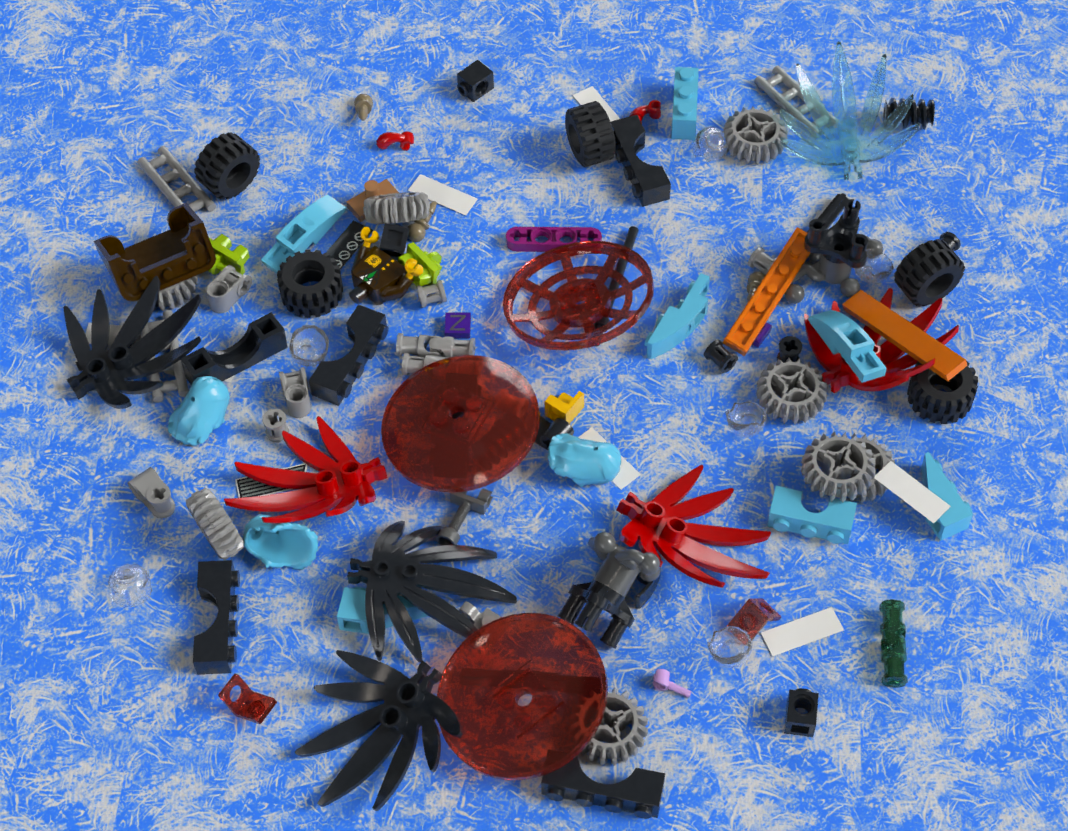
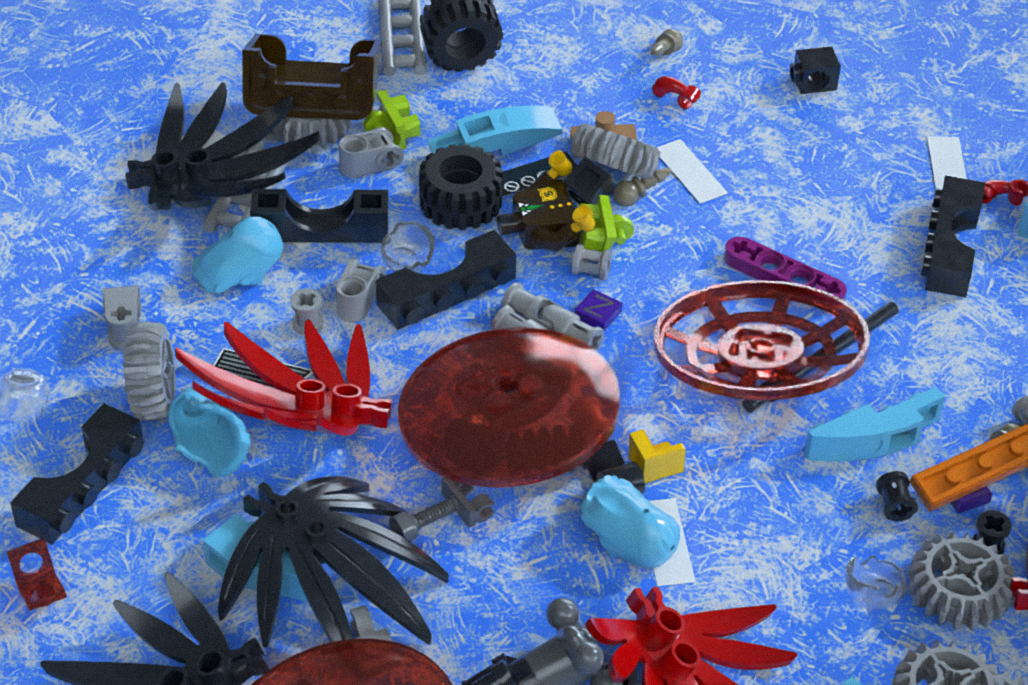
camera: 30 degrees right, 10 degrees down
(590, 134) = (907, 175): black tyre -> none

